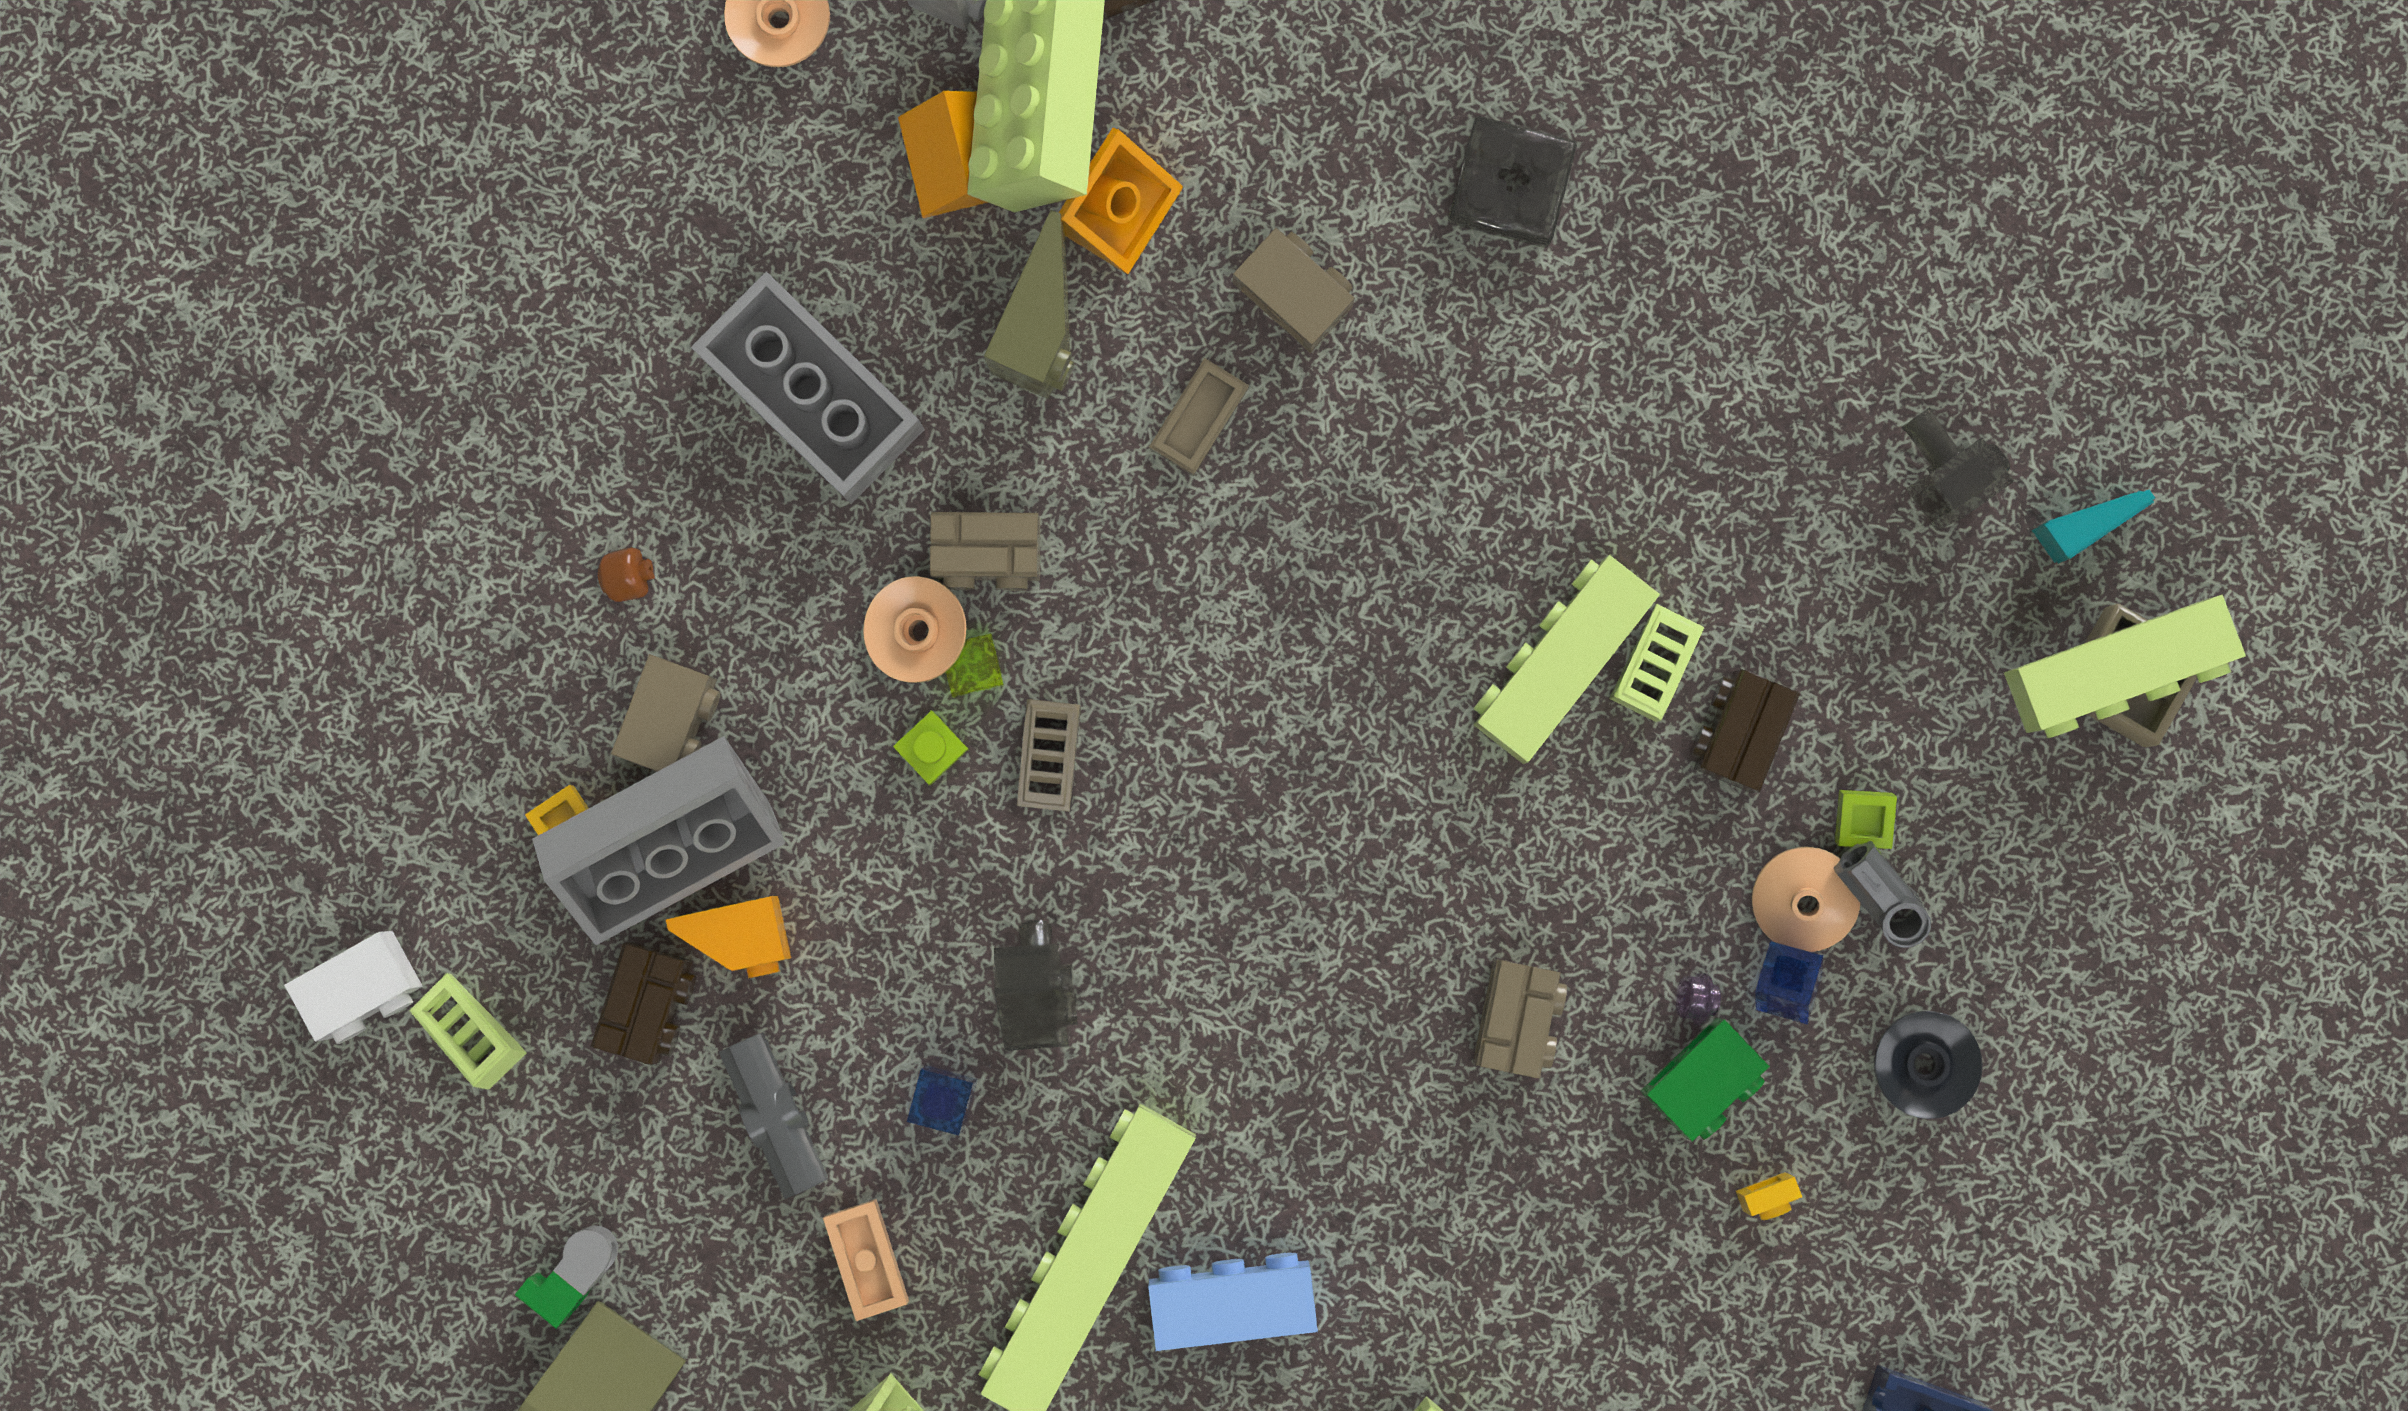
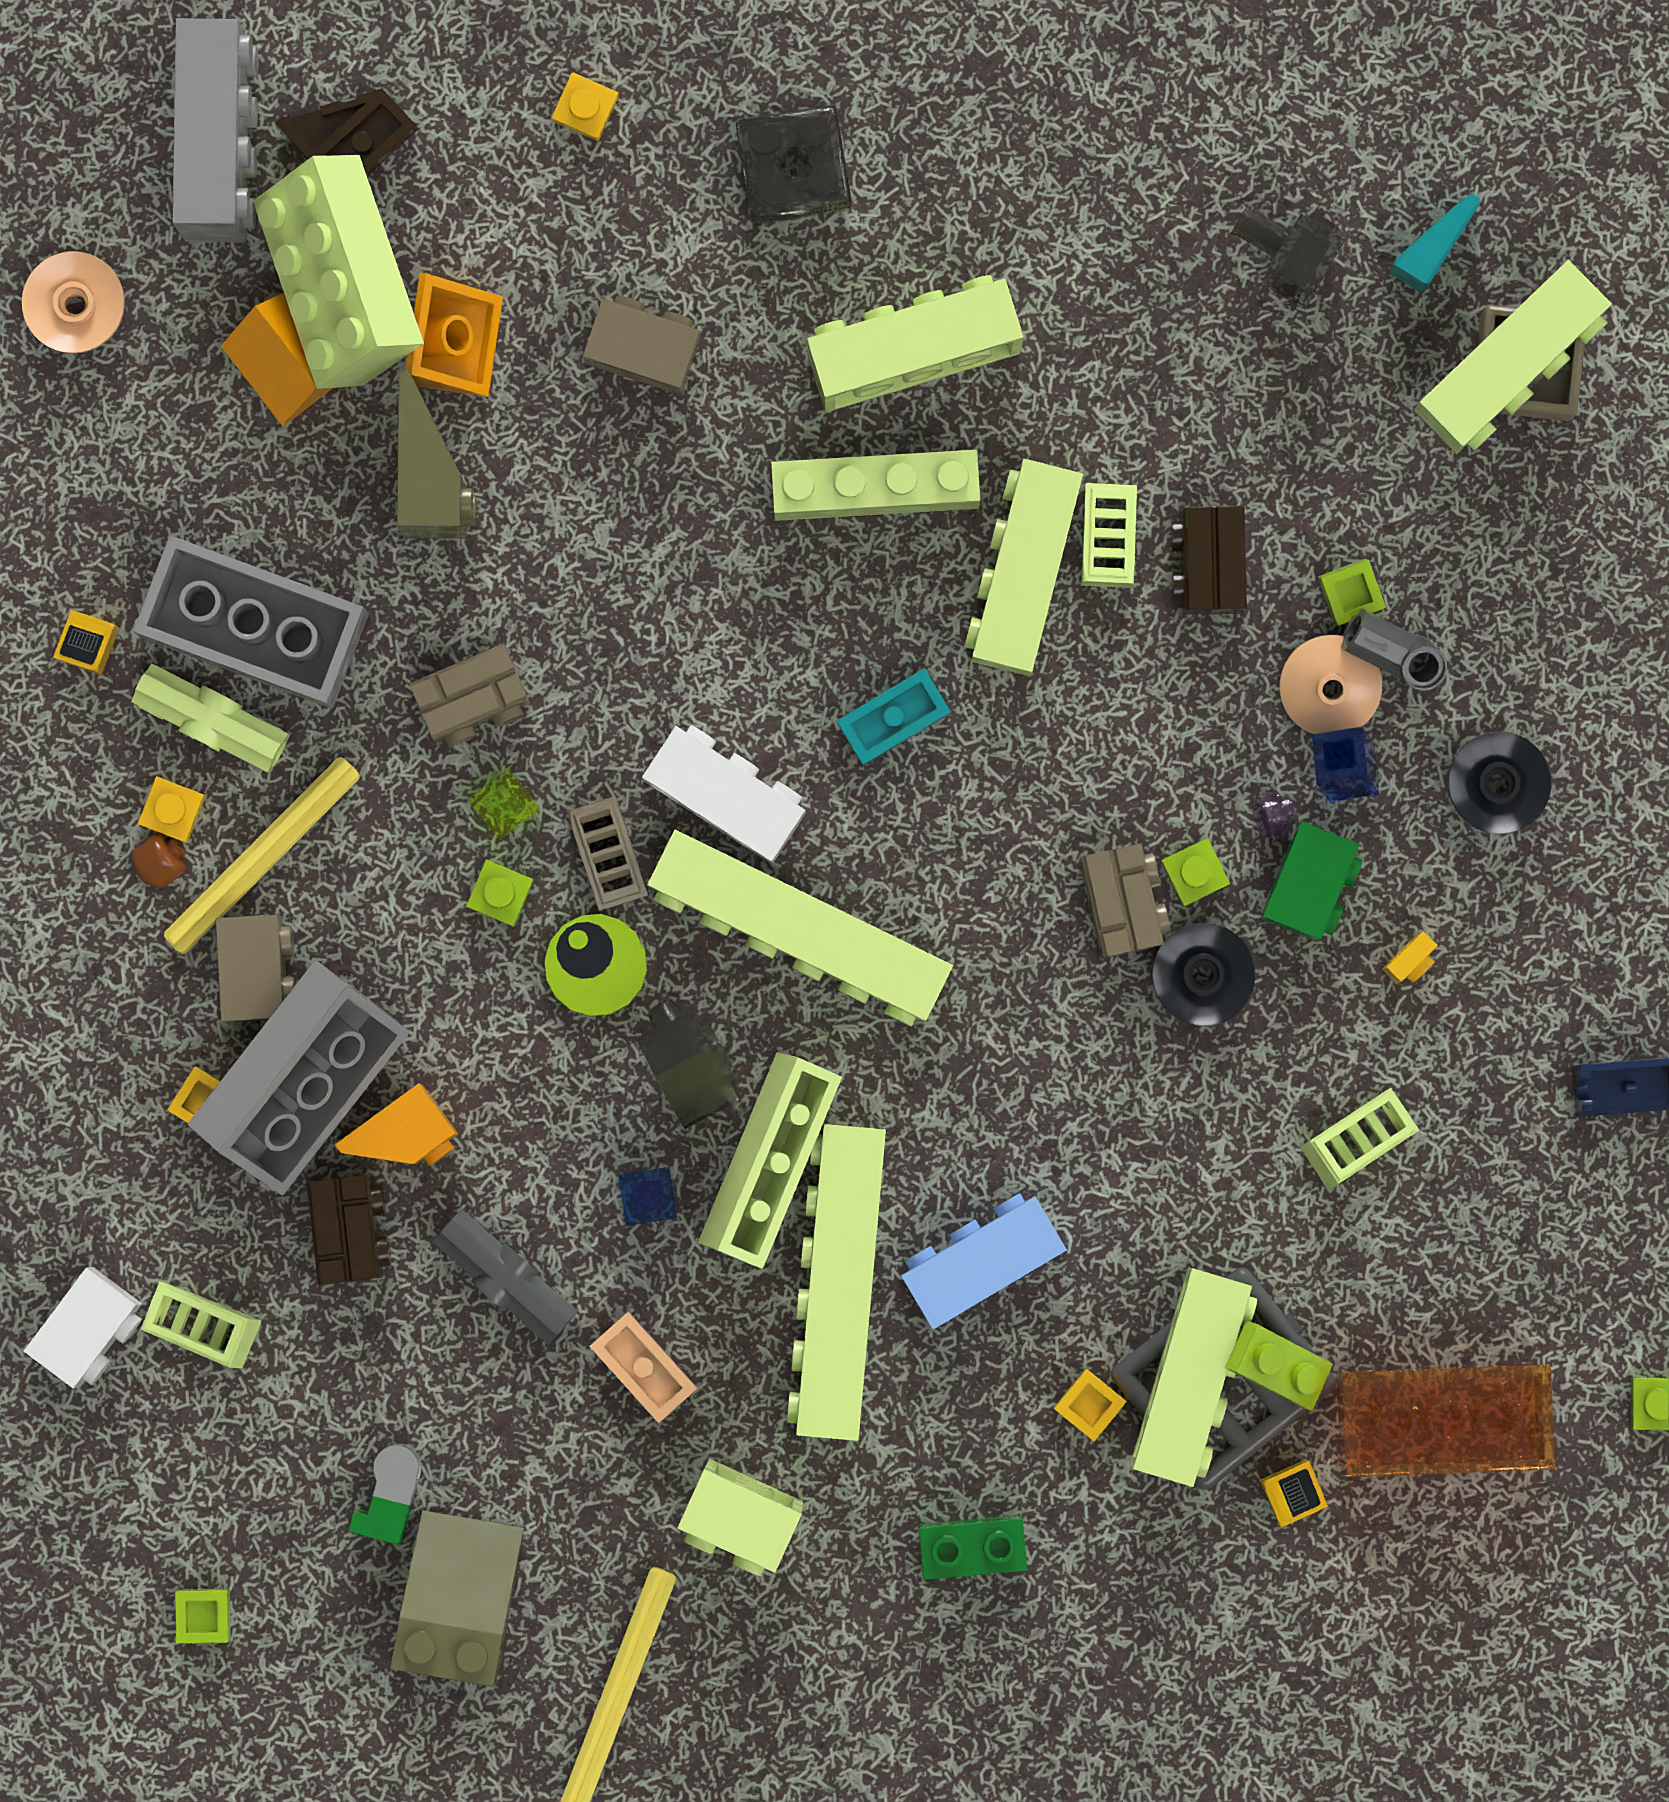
camera: 25 degrees left, 0 degrees up
(344, 1310) = (202, 1616): none -> lime plate
(648, 340) = (86, 642): none -> slope
(657, 532) = (171, 809): none -> yellow plate
(722, 613) = (261, 855): none -> light yellow axle
(731, 462) = (210, 718): none -> yellowish green piece
(891, 625) = (416, 800): light nougat dish -> none
(990, 856) = (595, 965): none -> lime tile
(1071, 1118) = (770, 1159): none -> yellowish green brick
(1185, 747) = (725, 792): none -> white brick
(1199, 417) = (608, 495): dark tan tile -> none
(1199, 906) = (800, 927): none -> yellowish green brick
(1339, 42) = (585, 106): none -> yellow plate
(1376, 745) = (893, 717): none -> teal plate
(1457, 518) = (876, 485): none -> yellowish green brick
(1554, 399) = (914, 343): none -> yellowish green brick
(1592, 1126) = (1230, 967): none -> black dish
(1598, 1020) = (1195, 872): none -> lime plate
(1600, 1351) = (1324, 1162): none -> yellowish green slope

